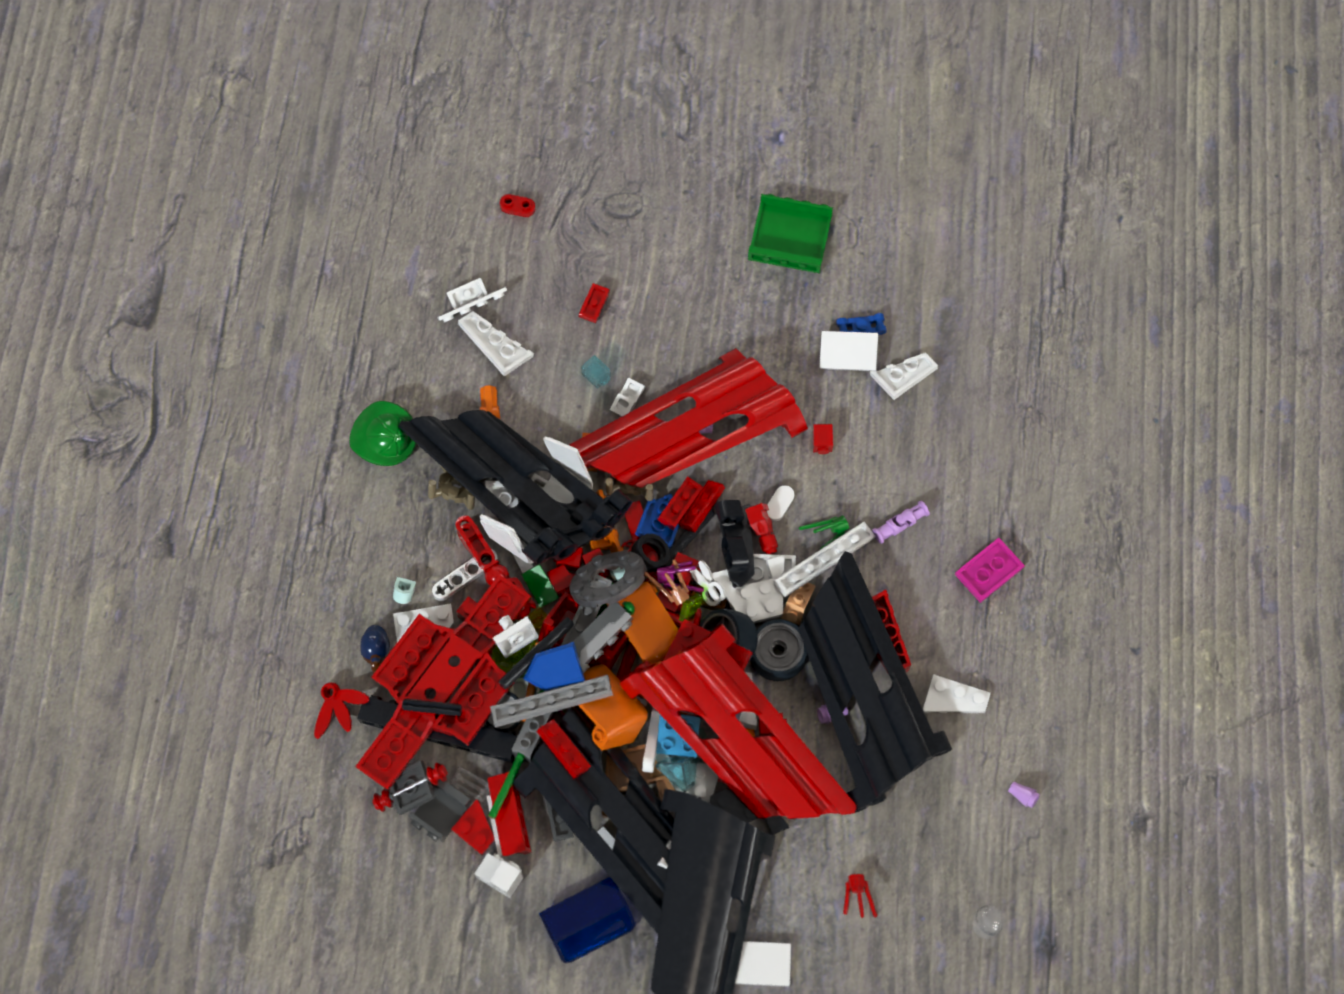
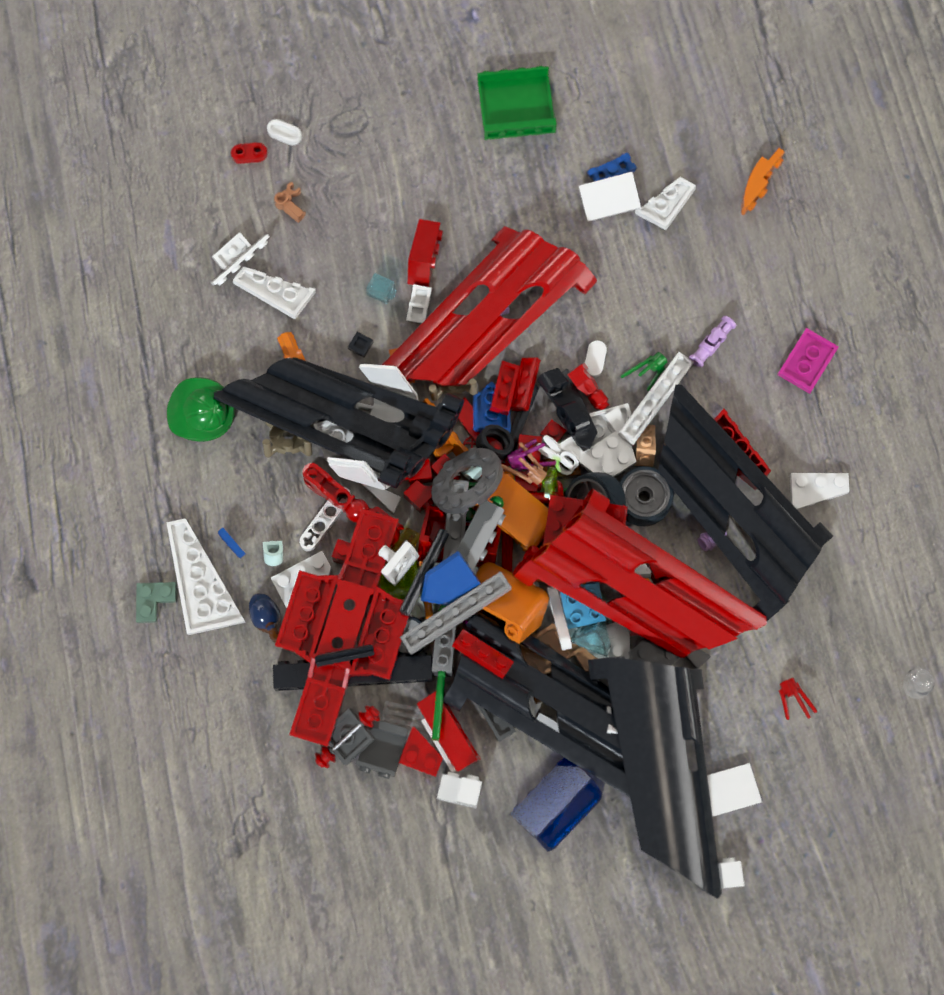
camera: 20 degrees left, 5 degrees up
(275, 594) = (149, 595): none -> sand green plate
(324, 606) = (201, 591): none -> white wing
(336, 702) = (247, 680): red plant -> none
(367, 568) = (231, 543): none -> blue tile
(533, 262) = (283, 201): none -> nougat bar
(539, 585) = (400, 507): green slope -> none
(557, 195) = (284, 132): none -> white tile
(557, 419) = (360, 344): none -> black plate
(594, 303) = (355, 224): red plate -> none
(648, 350) = (423, 252): none -> red wedge
(714, 560) = (553, 430): none -> red plate
(822, 438) = (614, 286): red brick -> none
(1001, 379) = (759, 179): none -> orange slope
(1024, 794) = (910, 556): lavender cone -> none

